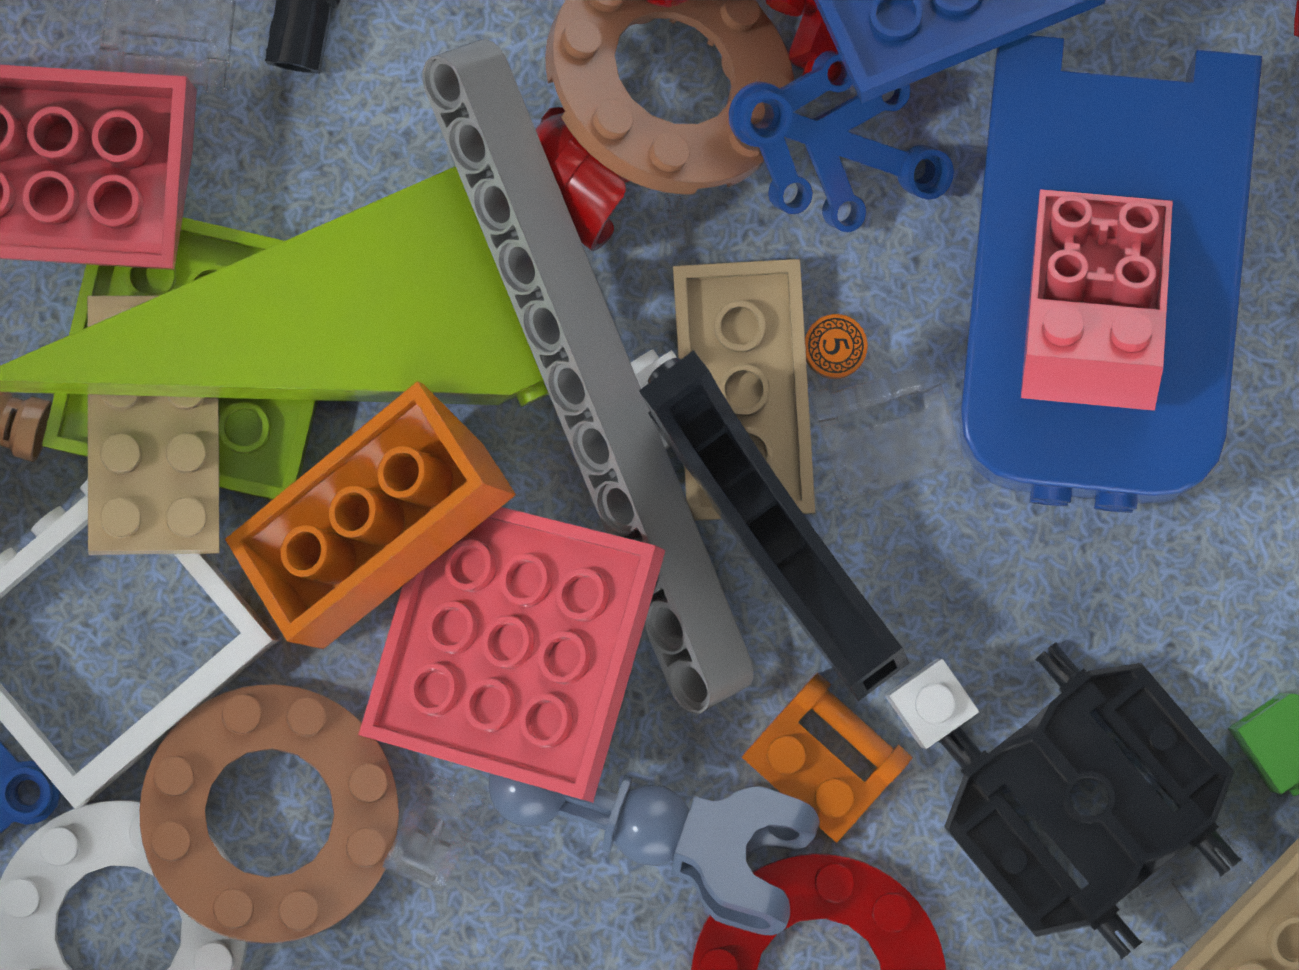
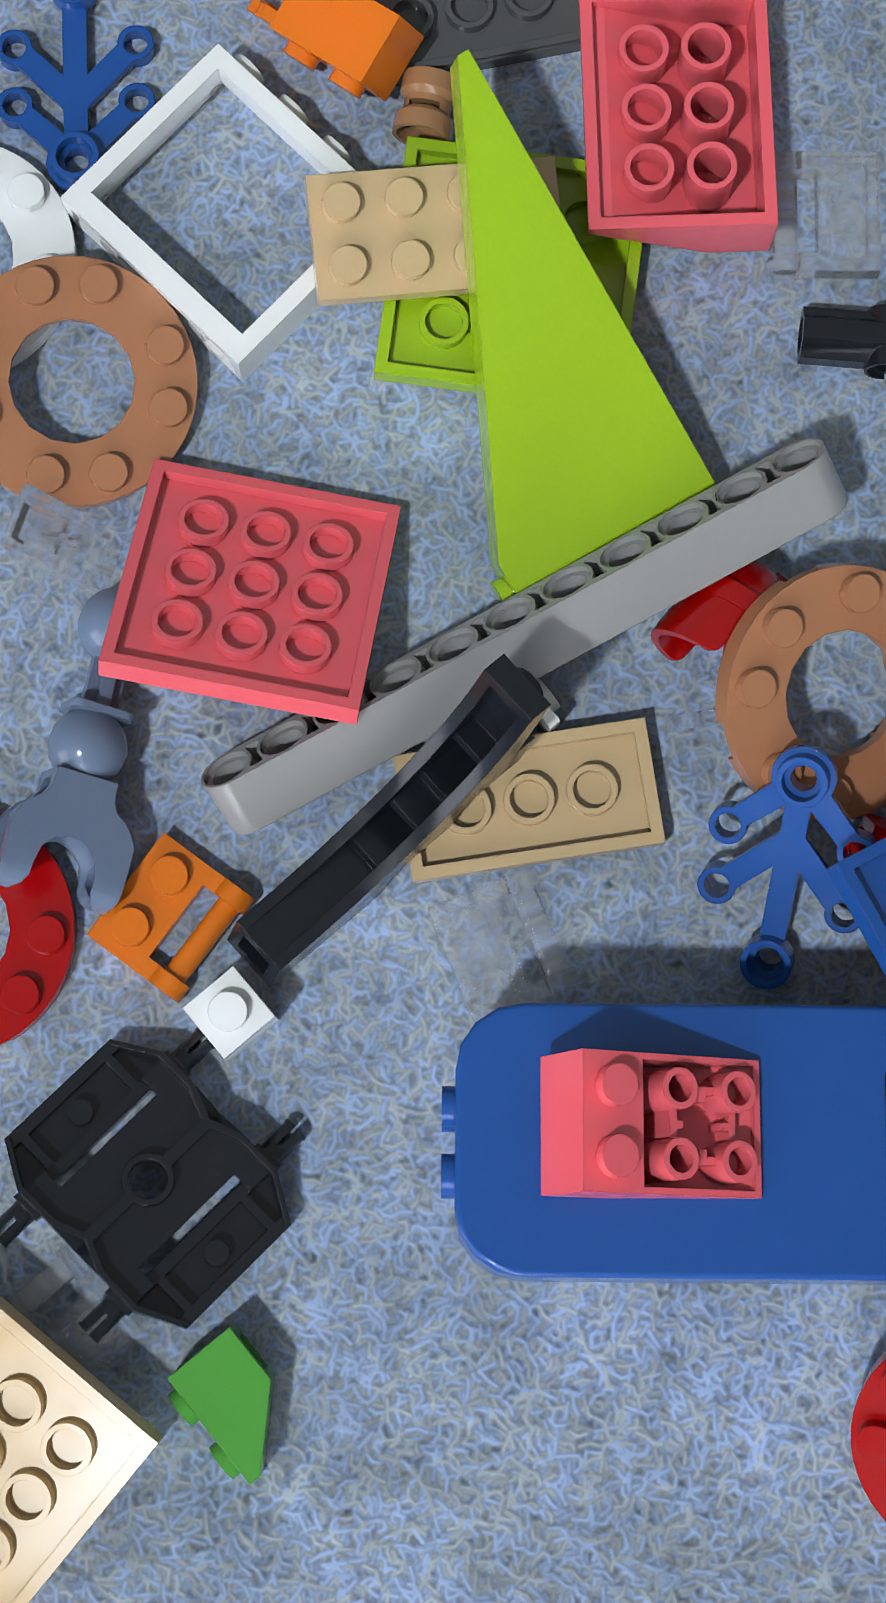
camera: 85 degrees right, 5 degrees down
(368, 518) = (364, 442): orange slope -> none
(835, 346) = (582, 888): orange tile -> none

